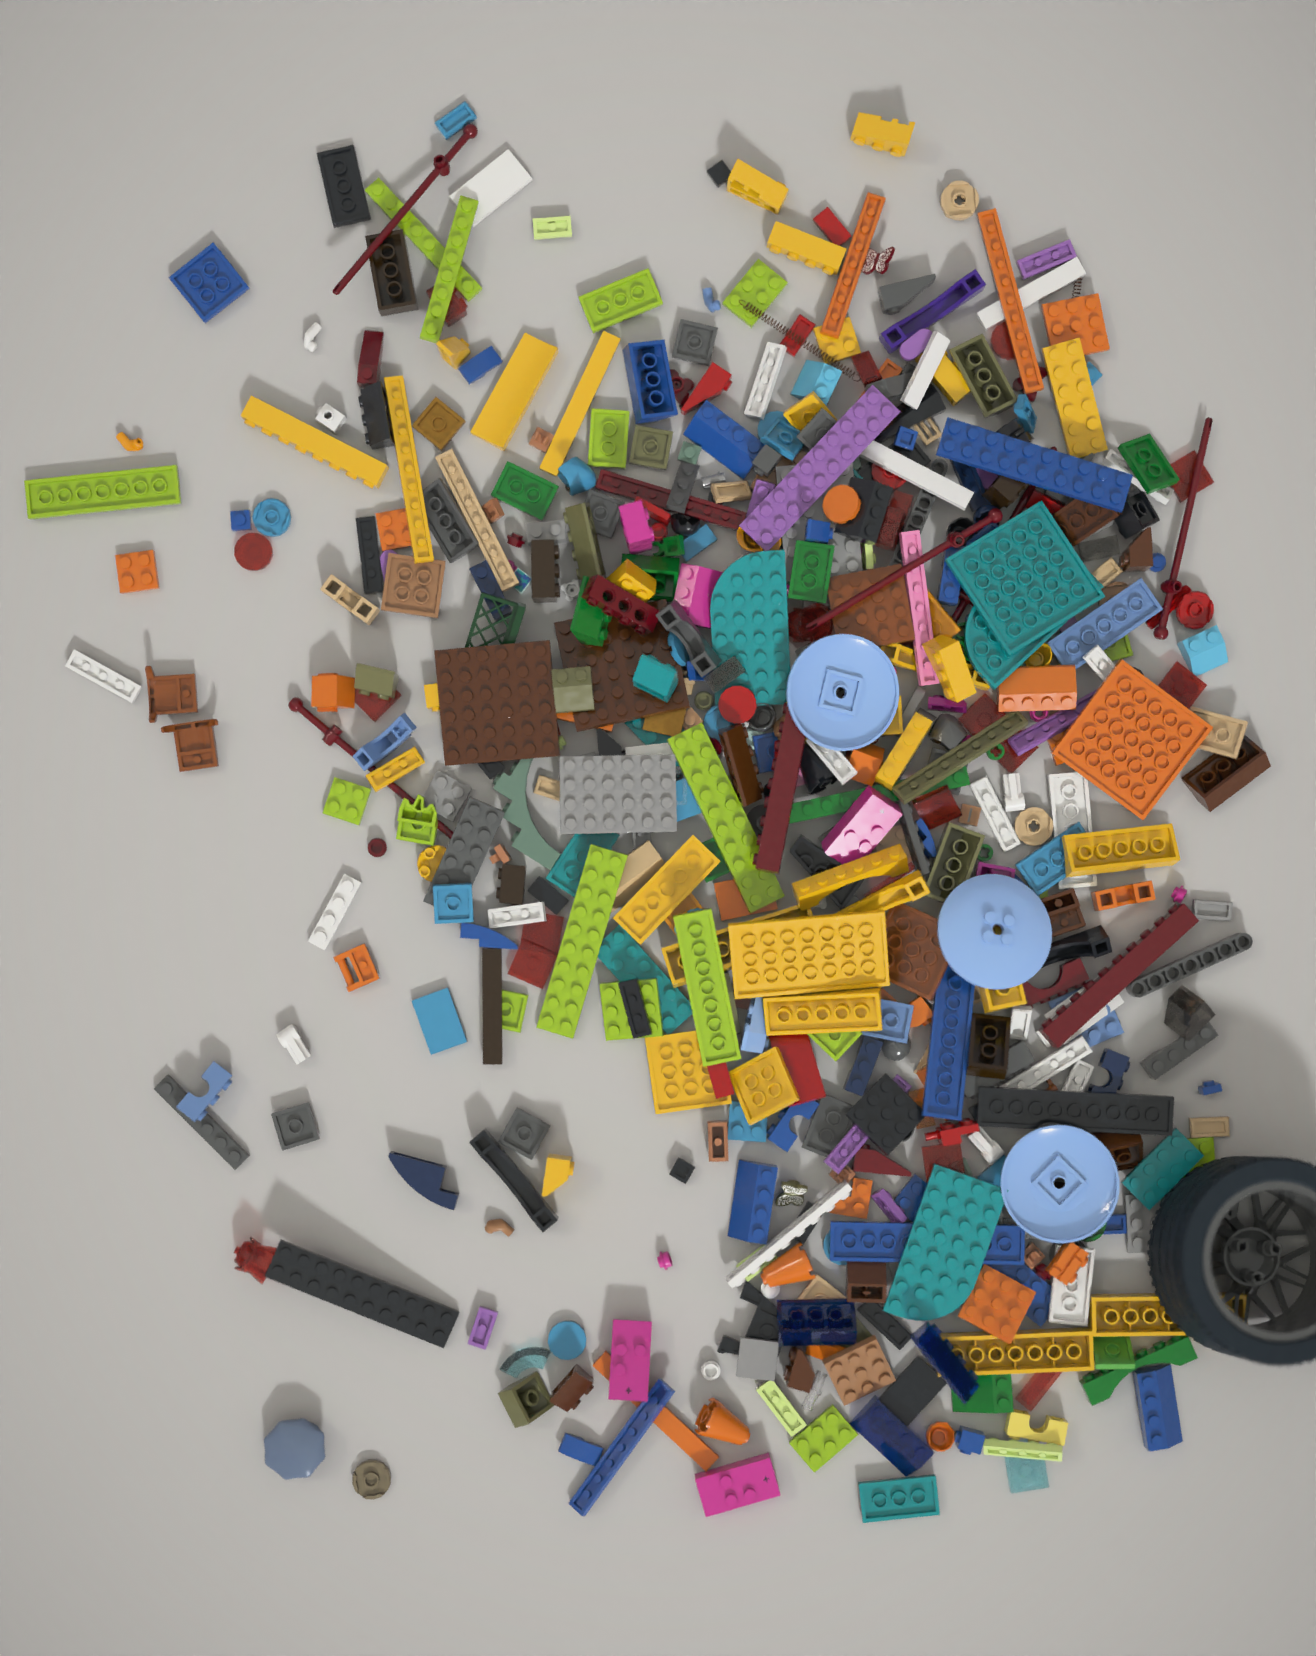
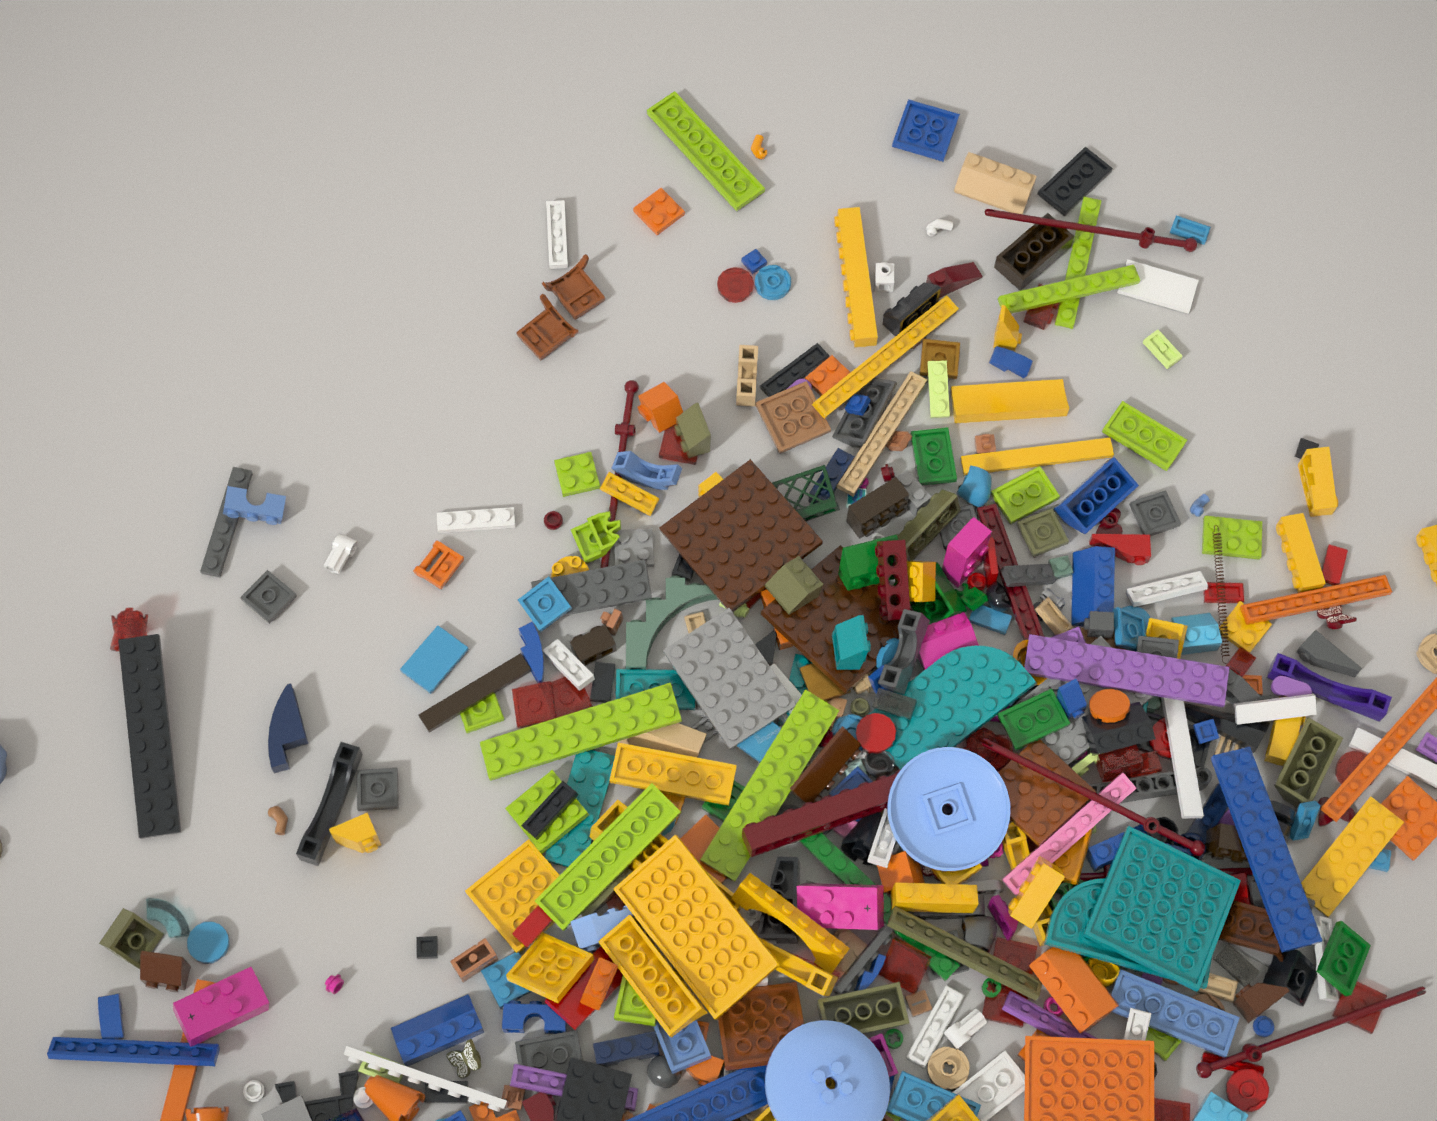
camera: 55 degrees right, 20 degrees down
(303, 259) = (995, 183): none -> tan slope
(437, 523) = (857, 404): none -> blue plate
(467, 445) = (938, 389): none -> yellowish green plate
(482, 1327) = (177, 860): medium lavender plate -> none
(802, 1056) = (599, 984): none -> orange brick

